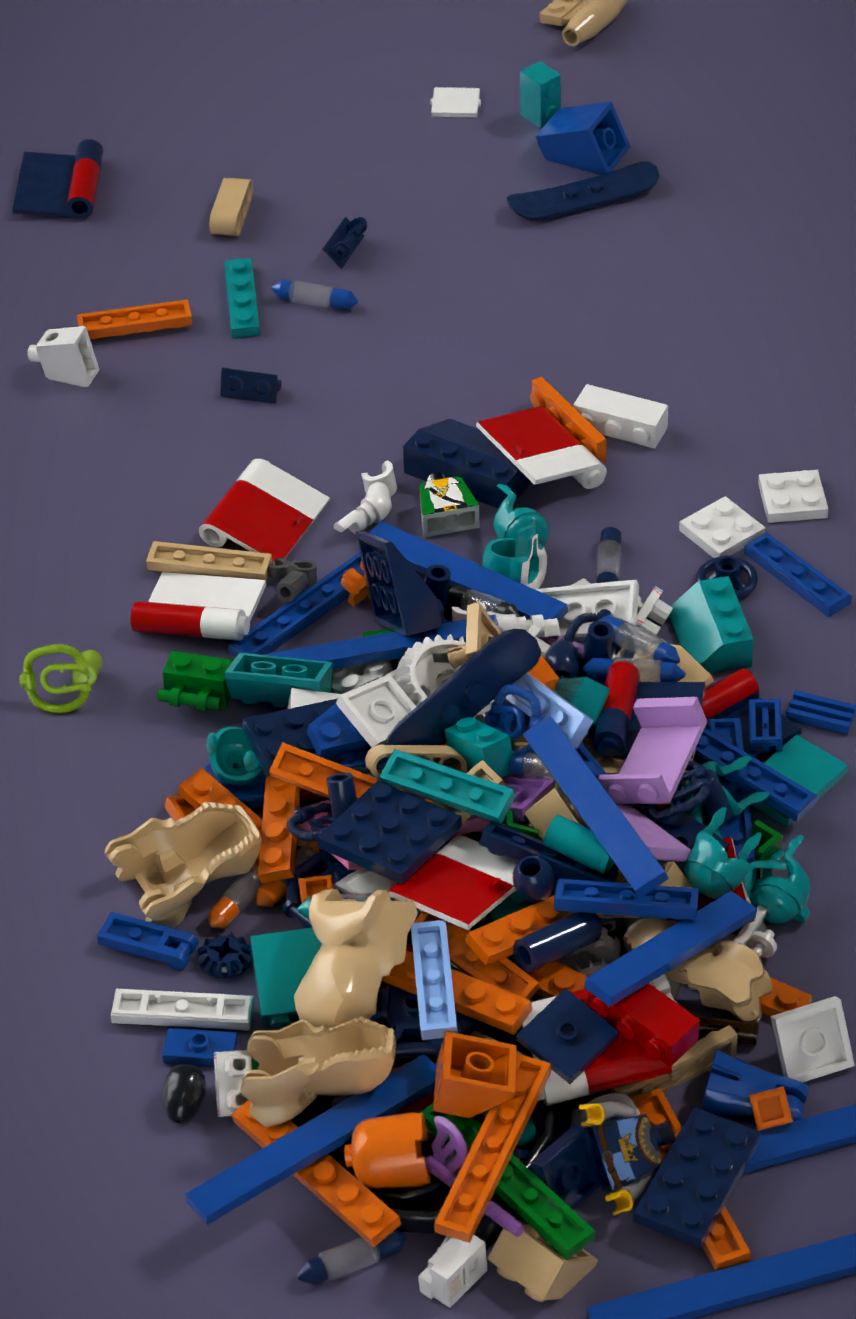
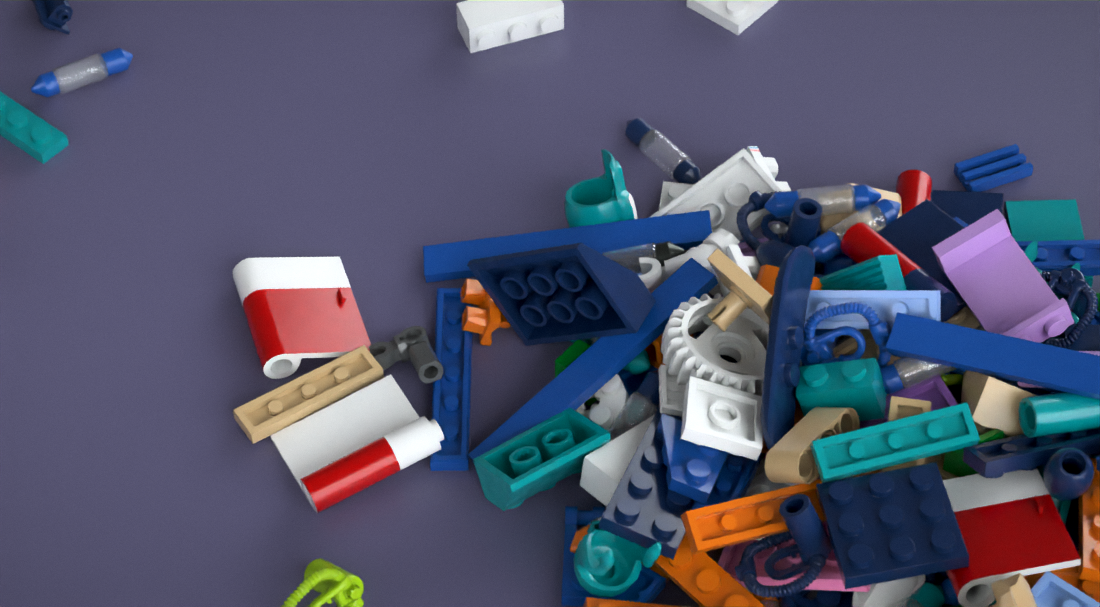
camera: 45 degrees left, 5 degrees up
(195, 681) = (455, 519): green brick -> none
(249, 385) = (129, 197): dark blue hinge -> none
(375, 504) = (396, 230): white piece -> none
(447, 506) = (462, 193): white torso -> none
(465, 453) = (434, 139): dark blue slope -> none
(509, 522) = (561, 171): teal hair -> none
(543, 447) = (491, 84): door -> none
(546, 396) = (471, 47): orange plate -> none
(713, 626) = (825, 149): teal slope -> none
(721, 528) = (713, 63): white plate -> none
(730, 567) = (775, 98): dark blue piece -> none
(766, 740) = (971, 210): blue tile -> none
(797, 574) = (822, 64): blue tile -> none

